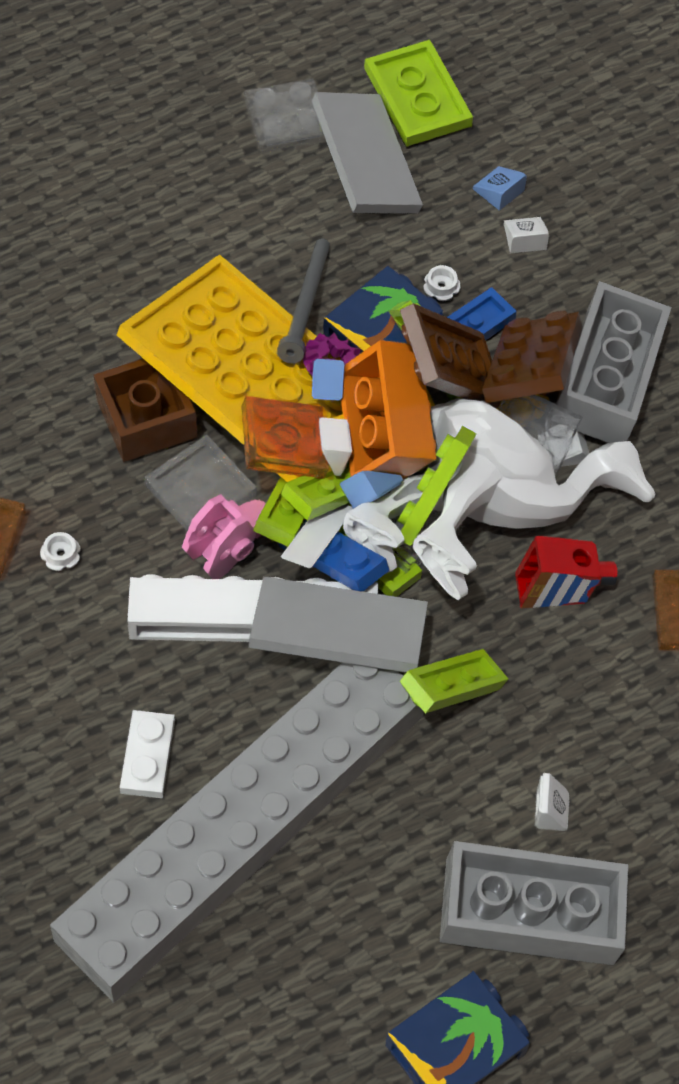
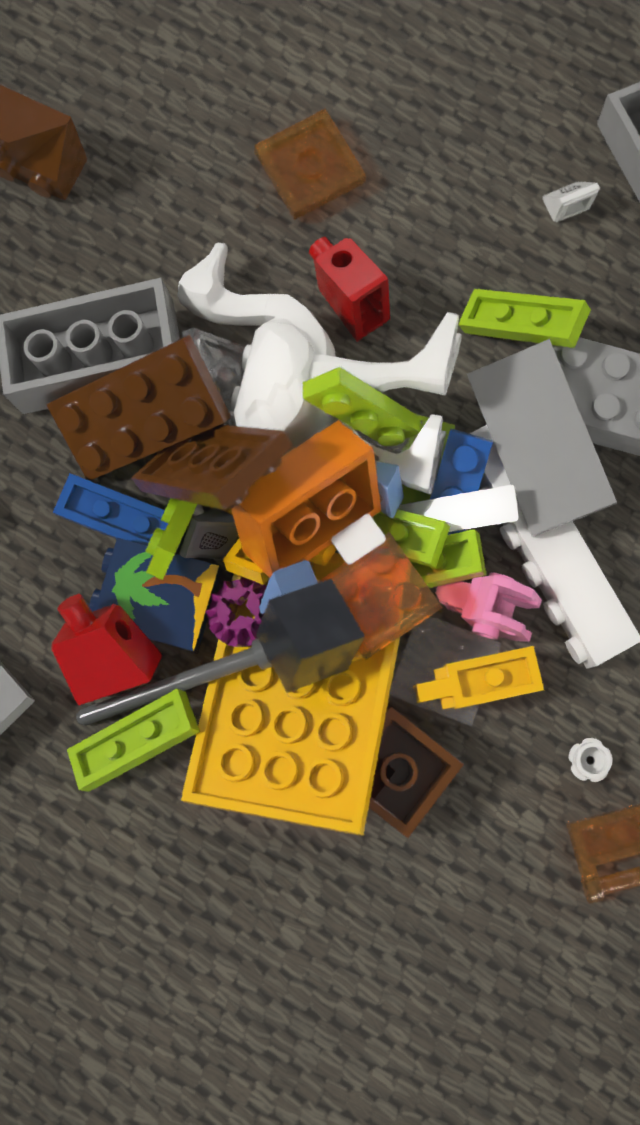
camera: 120 degrees left, 20 degrees up
(173, 493) = (483, 679): none -> yellow hinge
(282, 362) = (309, 635): none -> black head
(283, 256) = (133, 740): none -> lime plate
(361, 259) = (102, 650): none -> red torso
(441, 275) = (59, 565): white plate -> none

